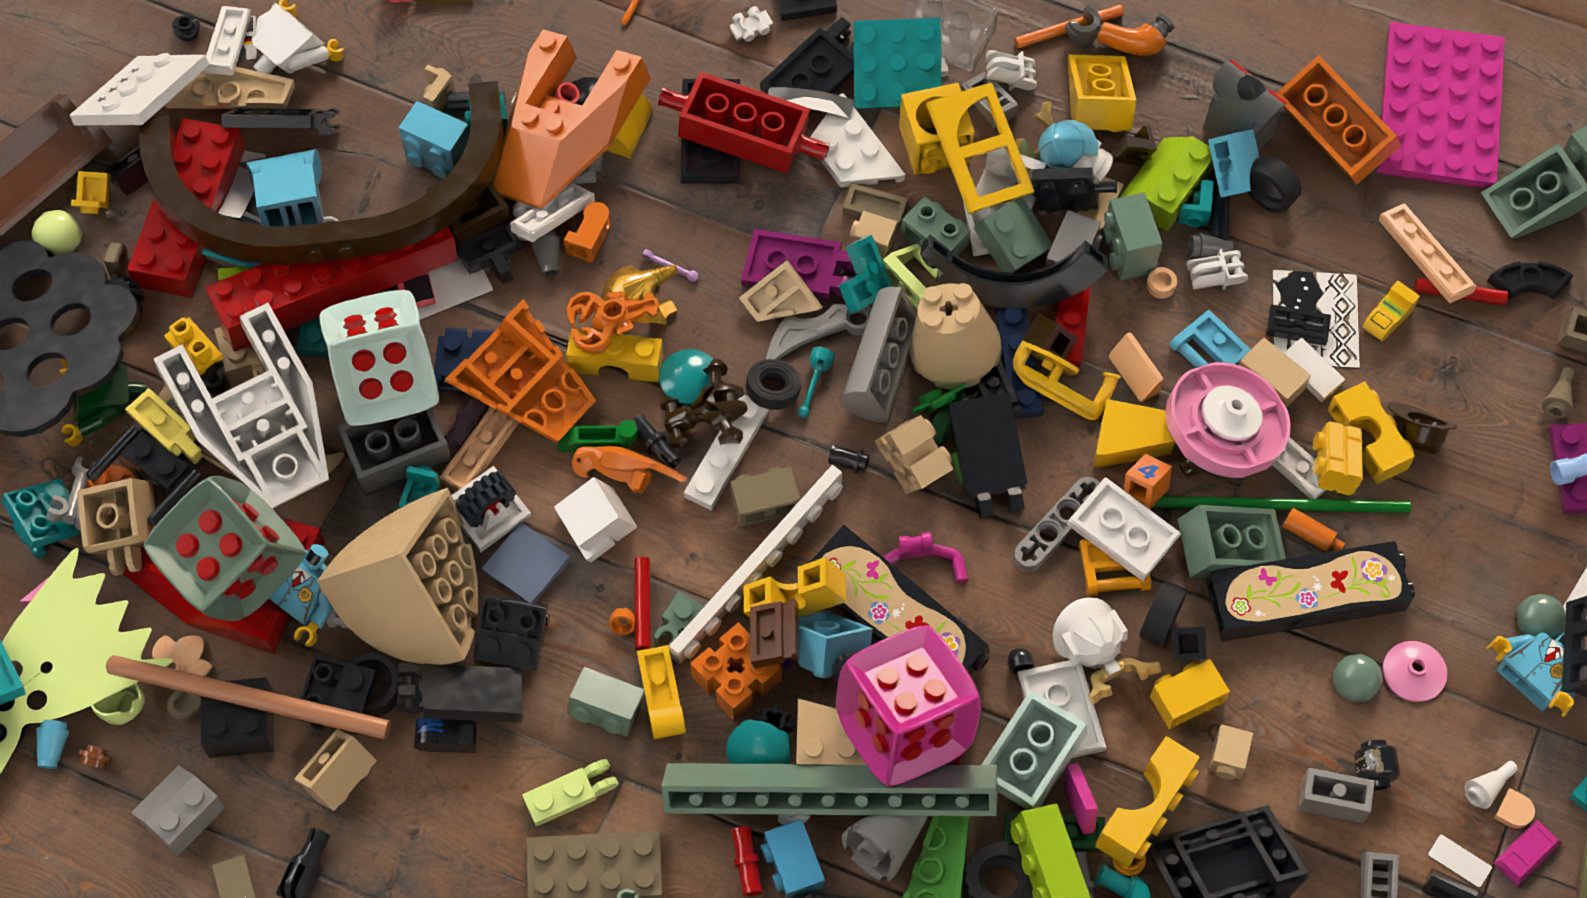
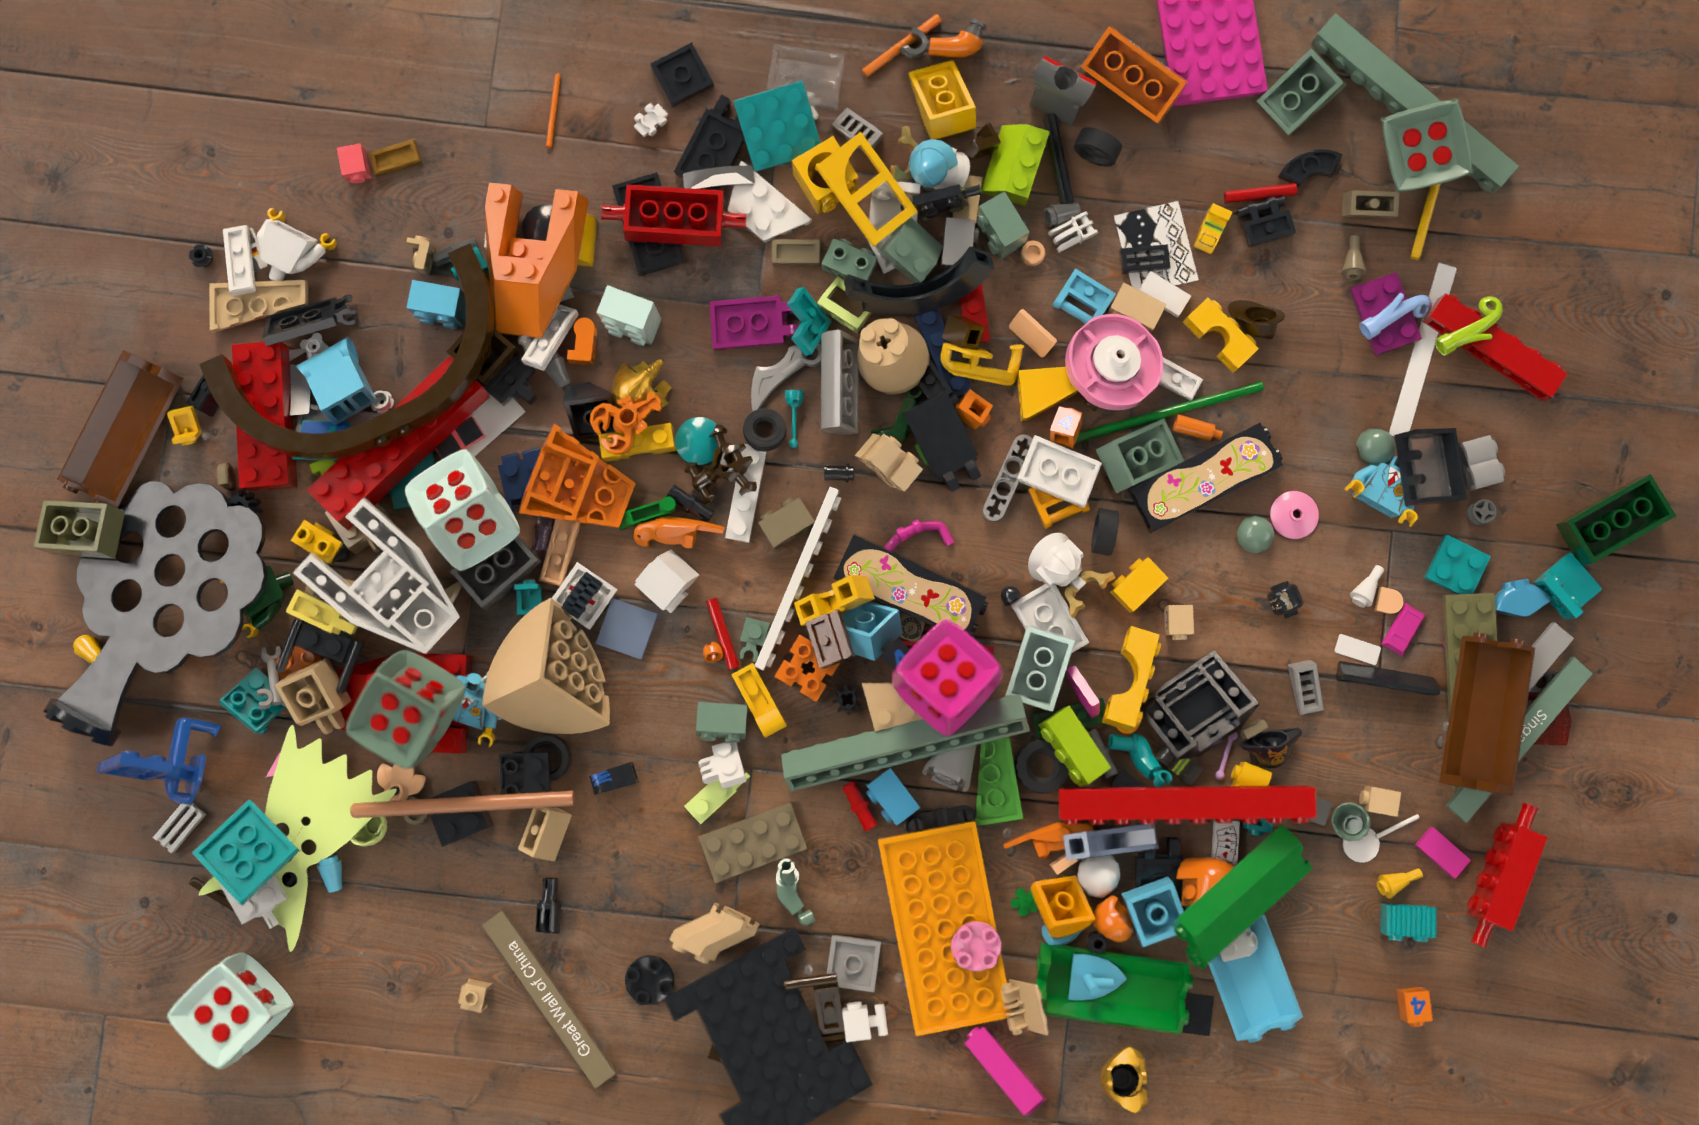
camera: 15 degrees left, 20 degrees up
(57, 232) = (171, 466): yellowish green hair -> none
(94, 757) = (367, 873): dark orange plate -> none
(139, 90) = (188, 332): white plate -> none
(178, 809) = (441, 892): light grey slope -> none
(279, 145) = (307, 345): none -> white plate
(460, 692) = (616, 747): black tile -> none
(510, 632) = (634, 688): black plate -> none
(557, 291) = (579, 403): none -> black slope
(567, 91) = (524, 227): coral hinge -> none
(590, 756) = (723, 766): none -> white hinge
(654, 209) = (629, 316): none -> light aqua brick
(692, 275) = (673, 354): lavender hinge -> none
(758, 744) = (842, 722): teal dish -> none
(780, 295) = (747, 355): tan wing -> none
(879, 227) = (803, 277): tan brick -> none
(936, 399) = (891, 408): green plate -> none
(1011, 69) = (868, 101): white arm -> none
(1037, 431) = (973, 410): none -> orange brick
(1189, 643) = (1130, 548): black brick -> none
(1199, 211) = (1046, 175): teal bracket -> none
(1233, 161) = (1063, 137): medium azure arch -> none
(1336, 795) = (1262, 633): light grey brick -> none
(1338, 458) = (1202, 365): yellow brick -> none
(1427, 253) = (1228, 169): light nougat tile -> none
(1460, 330) = (1267, 228): none -> black plate

